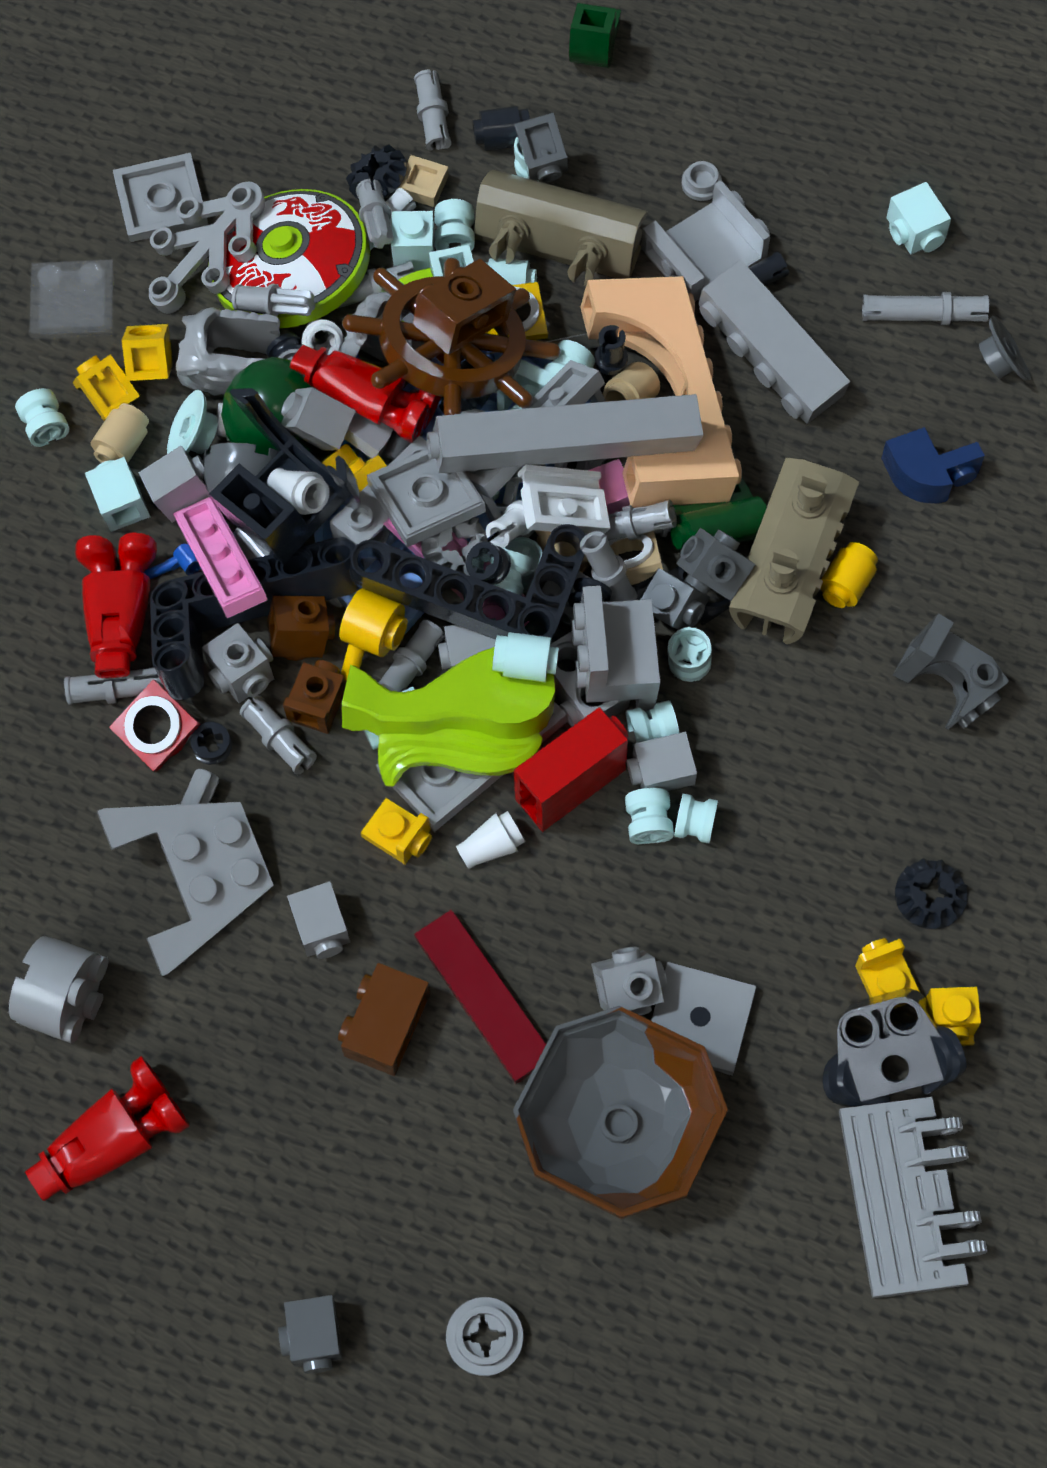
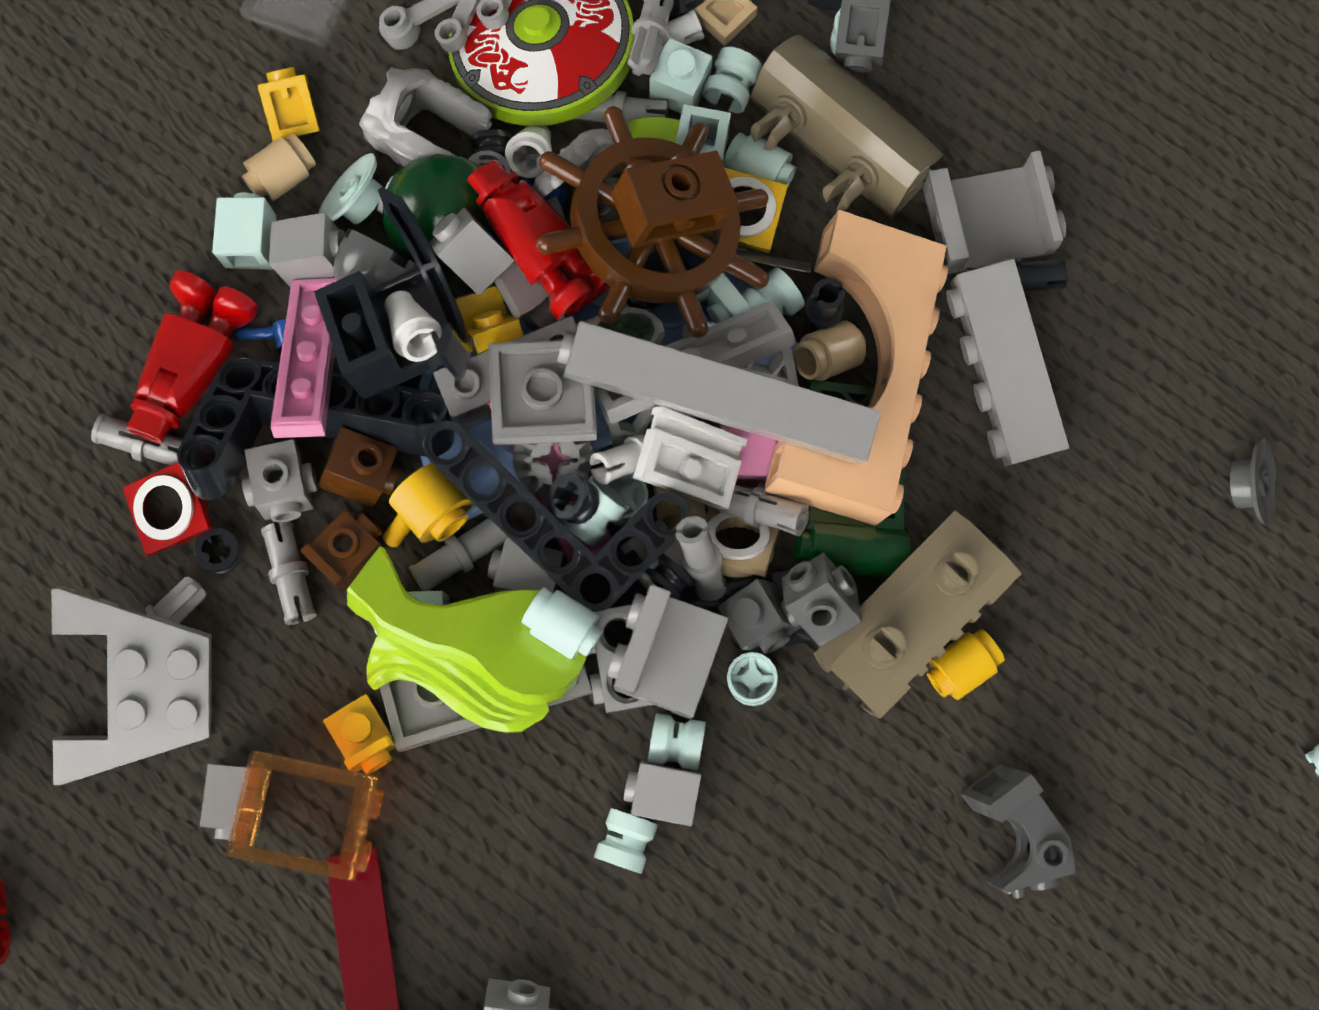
camera: 20 degrees right, 10 degrees up
(42, 417) = (208, 111): light aqua wheel -> none
(147, 352) = (344, 86): yellow brick -> none
(272, 300) = (493, 88): light grey axle -> none
(341, 906) = (355, 849): none -> clear orange window
(384, 1018) = (250, 939): reddish brown brick -> none
(491, 840) = (453, 791): white cone -> none
(571, 768) = (564, 758): red brick -> none
(695, 818) = (673, 865): light aqua wheel -> none
(699, 180) = (1021, 137): light grey plate -> none
(918, 219) = (1236, 286): light aqua brick -> none
(925, 474) = (1099, 580): dark blue brick -> none
(926, 308) = (1213, 399): light grey pin -> none

